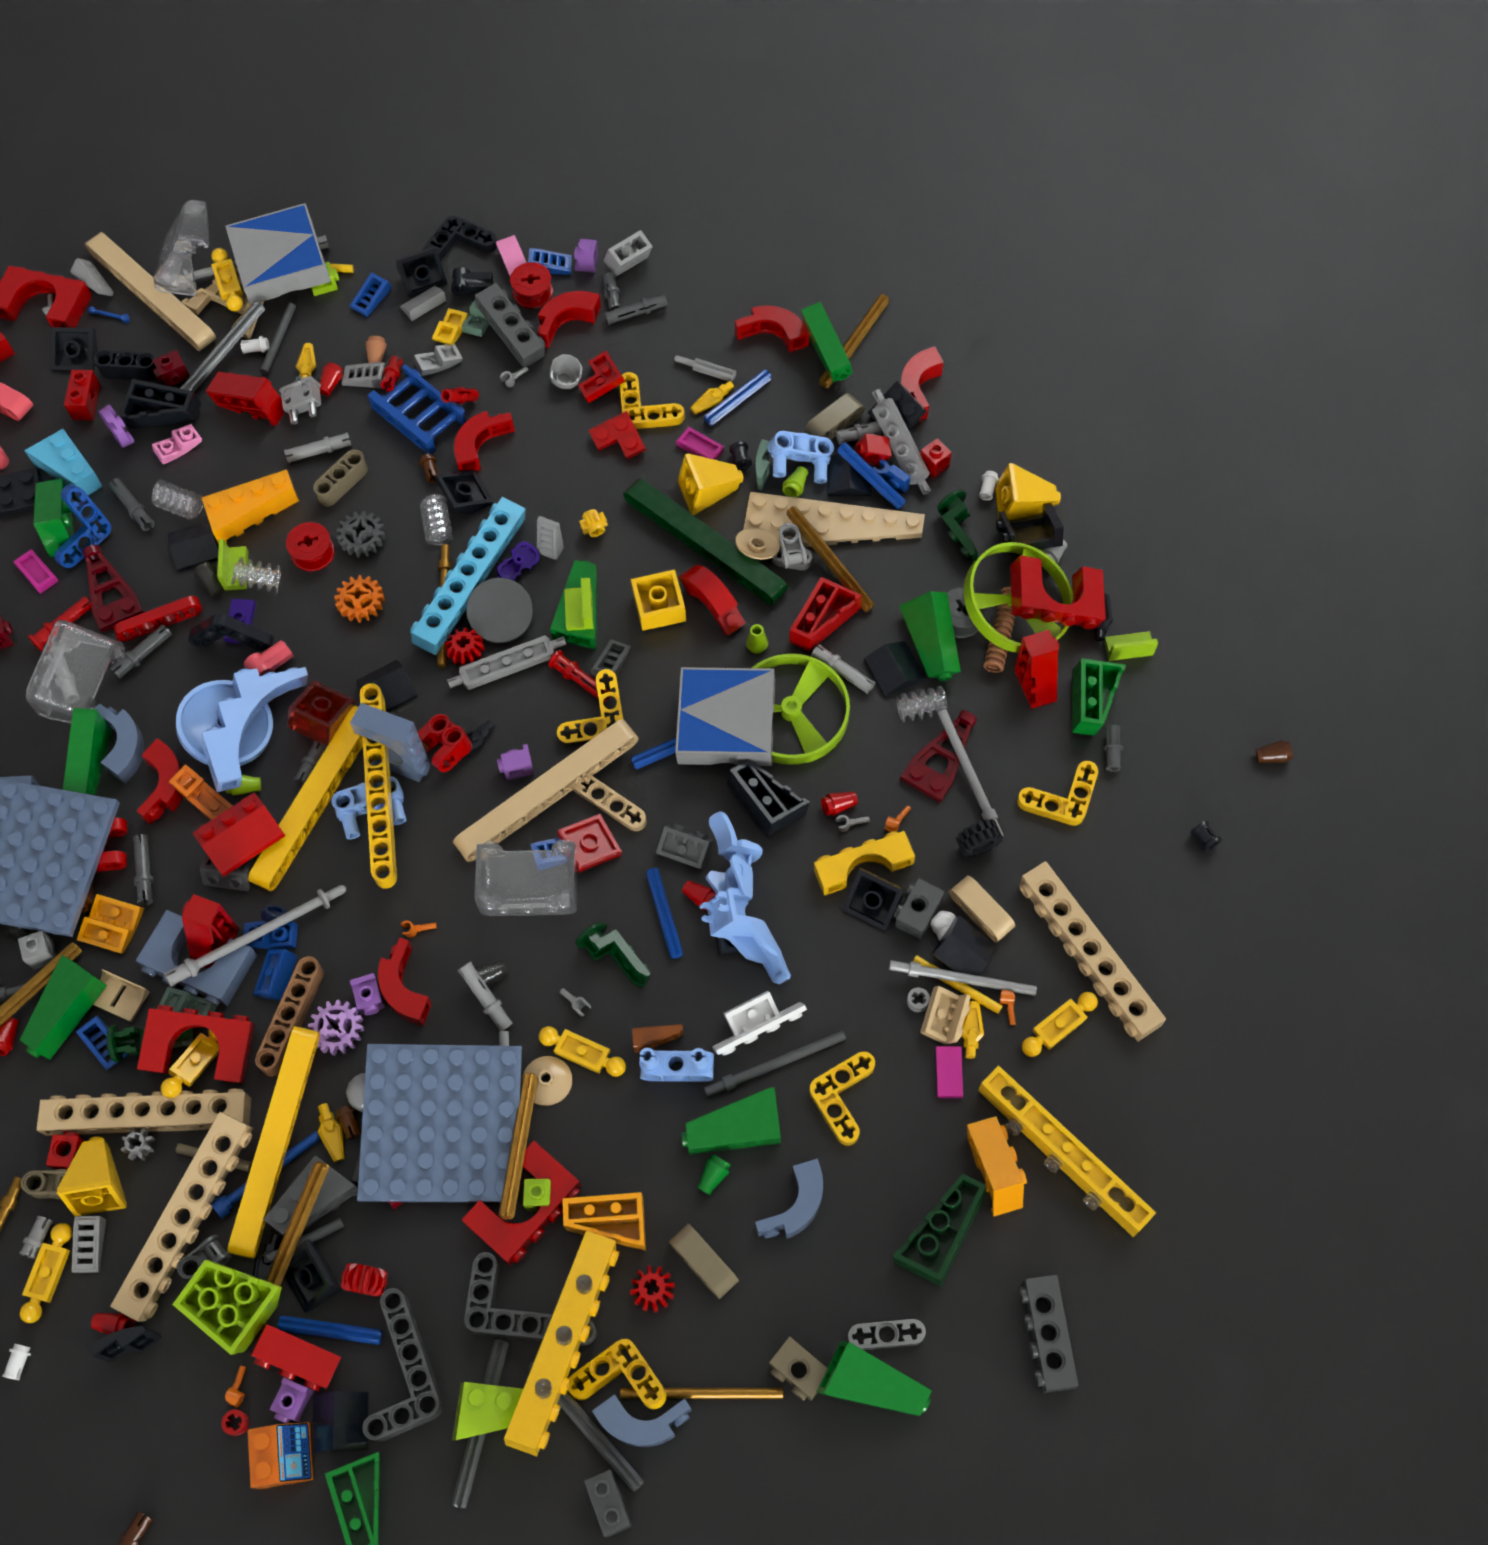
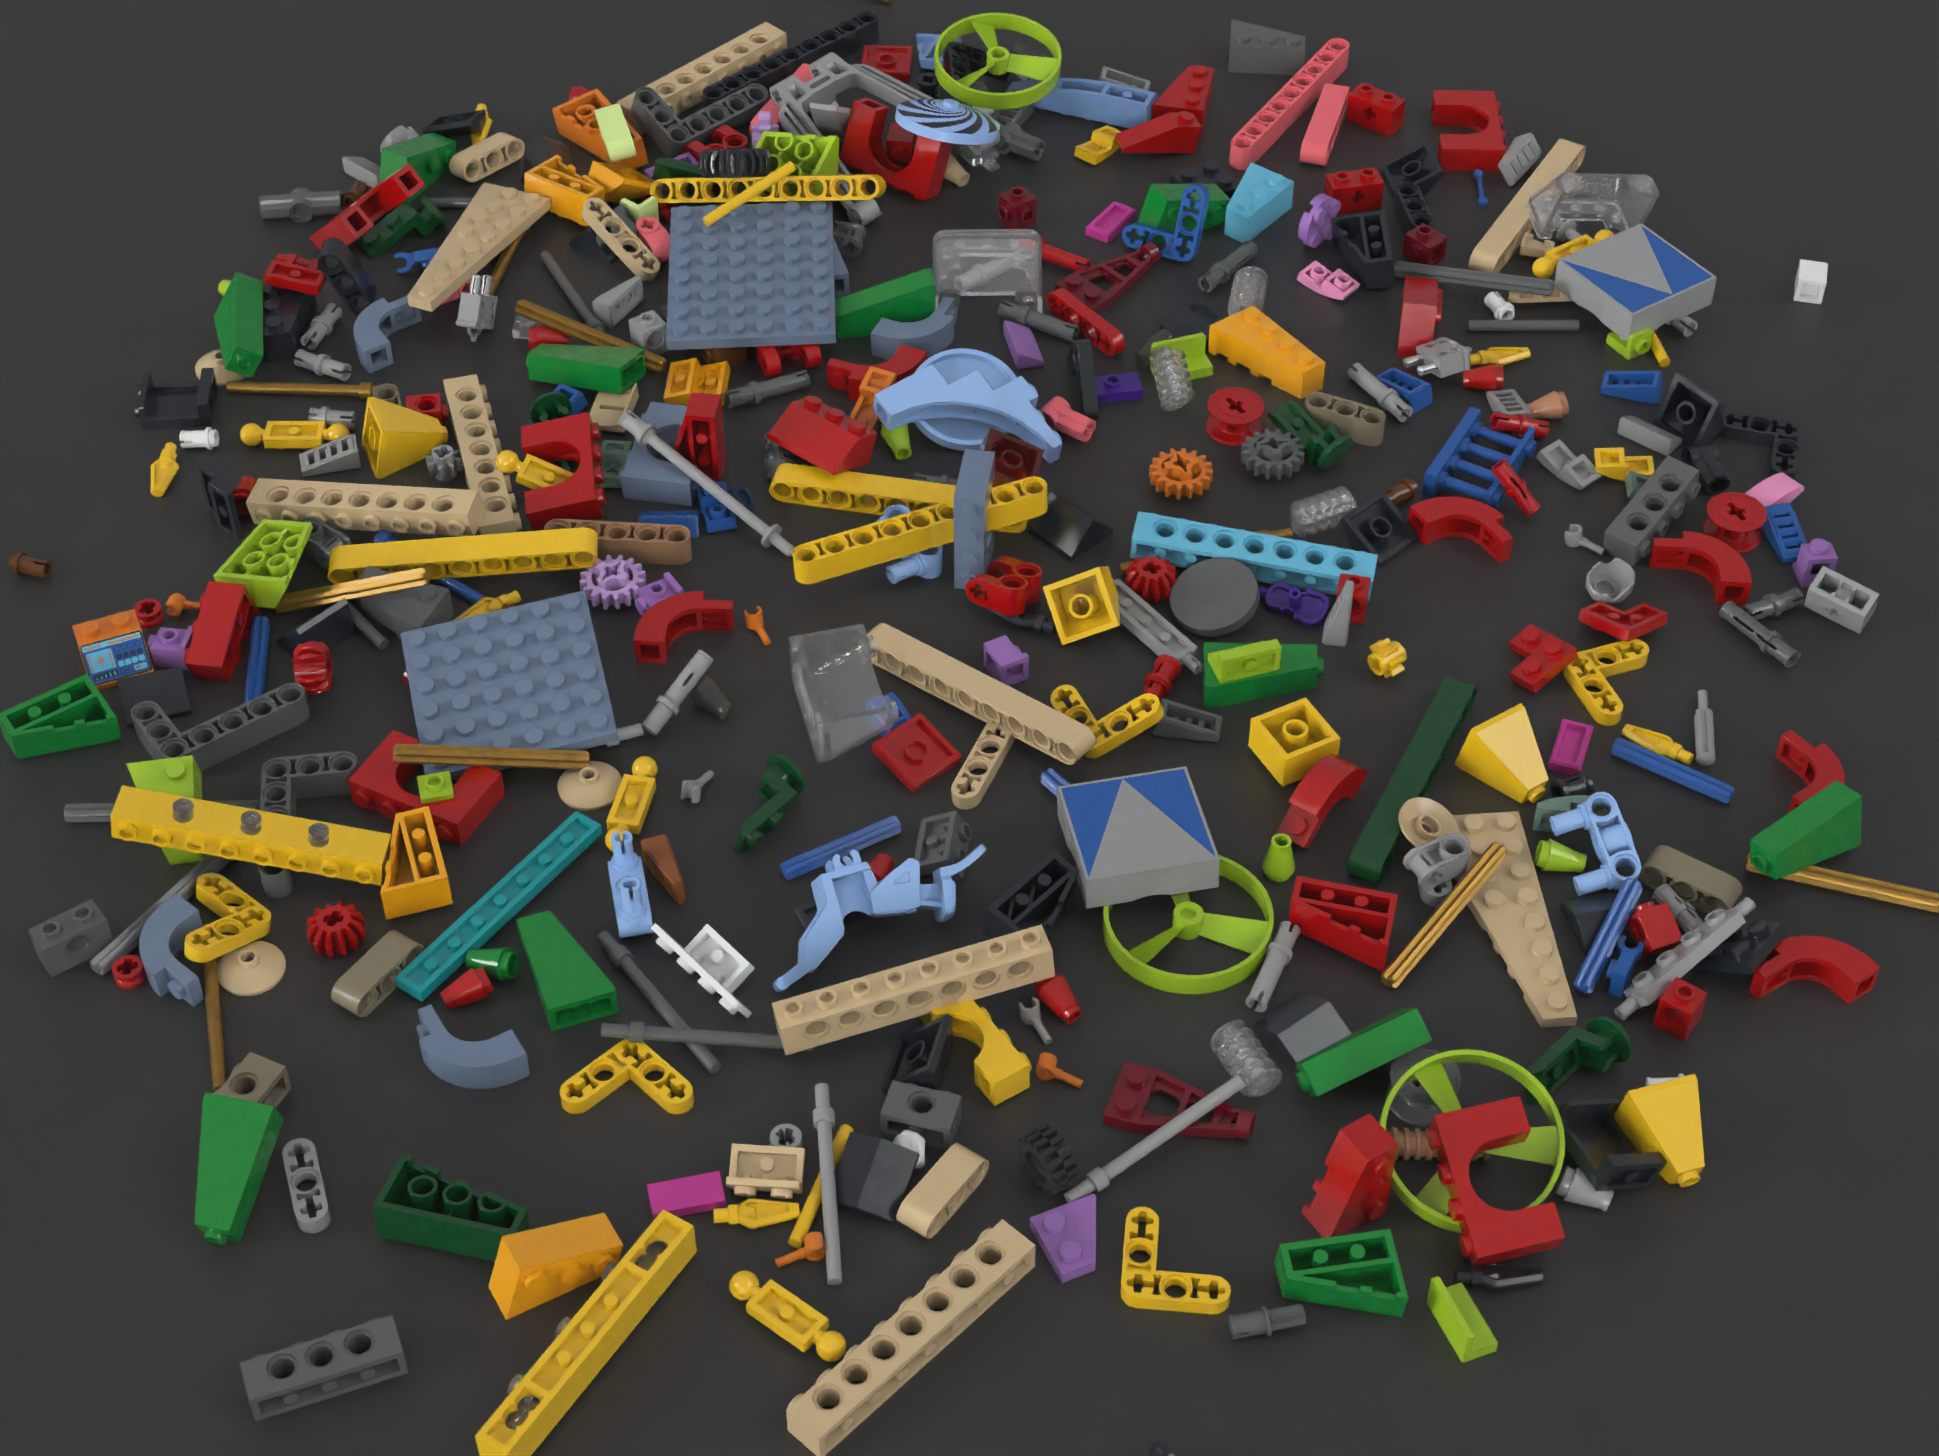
camera: 75 degrees right, 20 degrees down
(45, 1398) = (164, 470): none -> yellow piece
(164, 671) = (1022, 345): none -> medium lavender slope
(308, 156) = (1810, 281): none -> white brick
(315, 426) = (1410, 389): none -> blue slope
(337, 508) = (1323, 446): none -> dark green piece
(483, 695) = (1083, 604): none -> yellow slope
(526, 526) = (1360, 596): none -> red brick
(655, 1453) = (137, 973): none -> red bush
(658, 1163) = (498, 906): none -> teal plate
(680, 1359) = (251, 969): none -> tan dish
(734, 1196) = (468, 988): none -> red cone
(812, 1077) = (638, 1032): none -> dark grey bar
(830, 887) = (913, 989): none -> tan brick
(1028, 843) = (1068, 1237): none -> medium lavender wing

